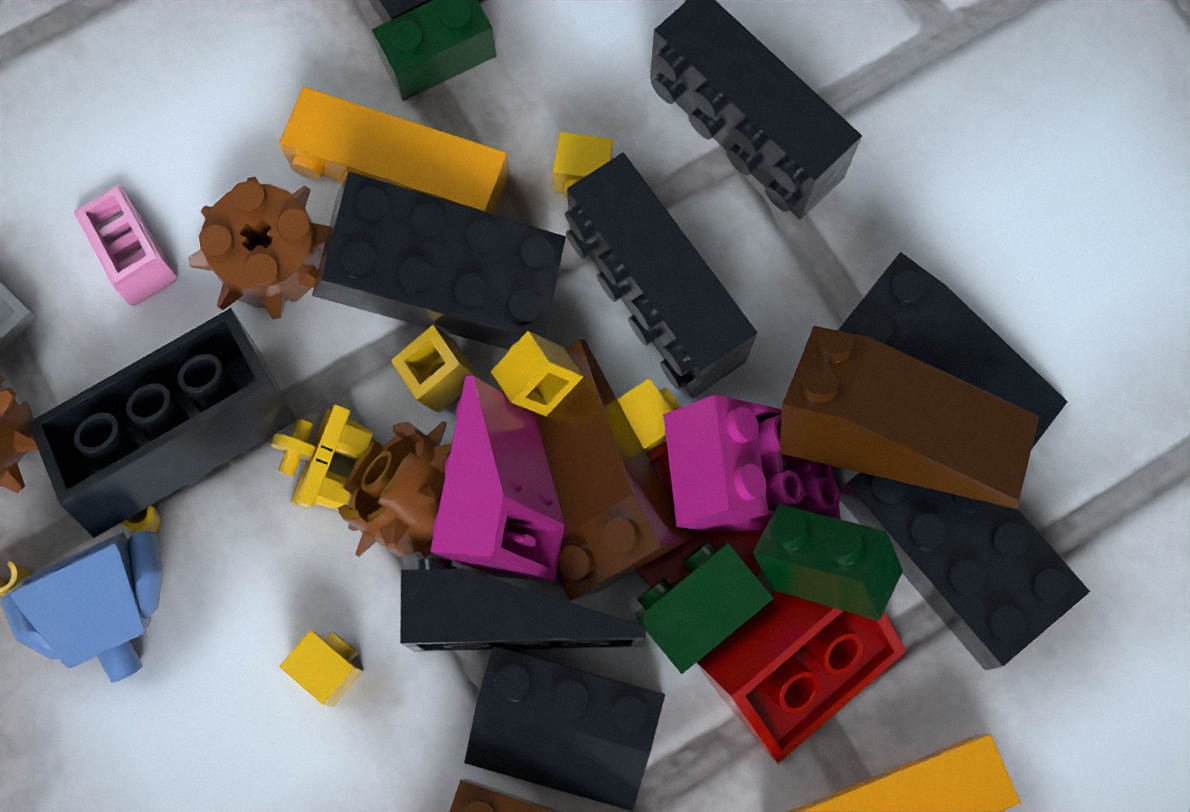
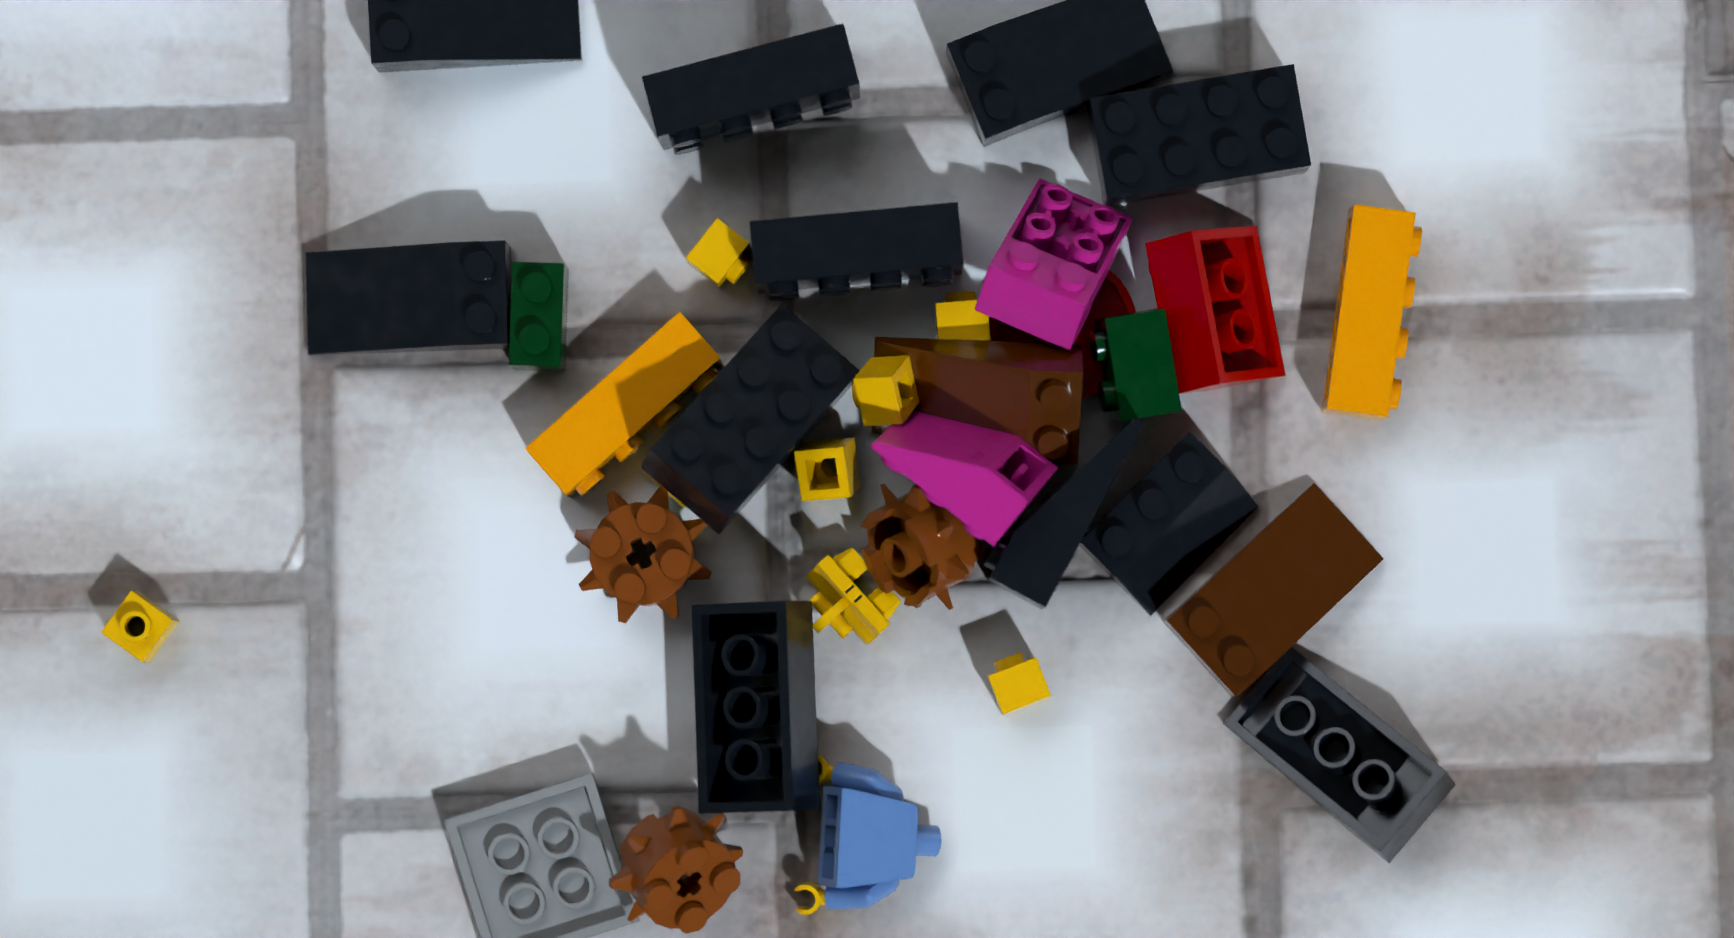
camera: 55 degrees left, 10 degrees up
(142, 272) = (610, 666): bright pink slope -> none
(829, 561) = (1162, 252): dark green brick -> none
(903, 420) = (1088, 129): reddish brown slope -> none

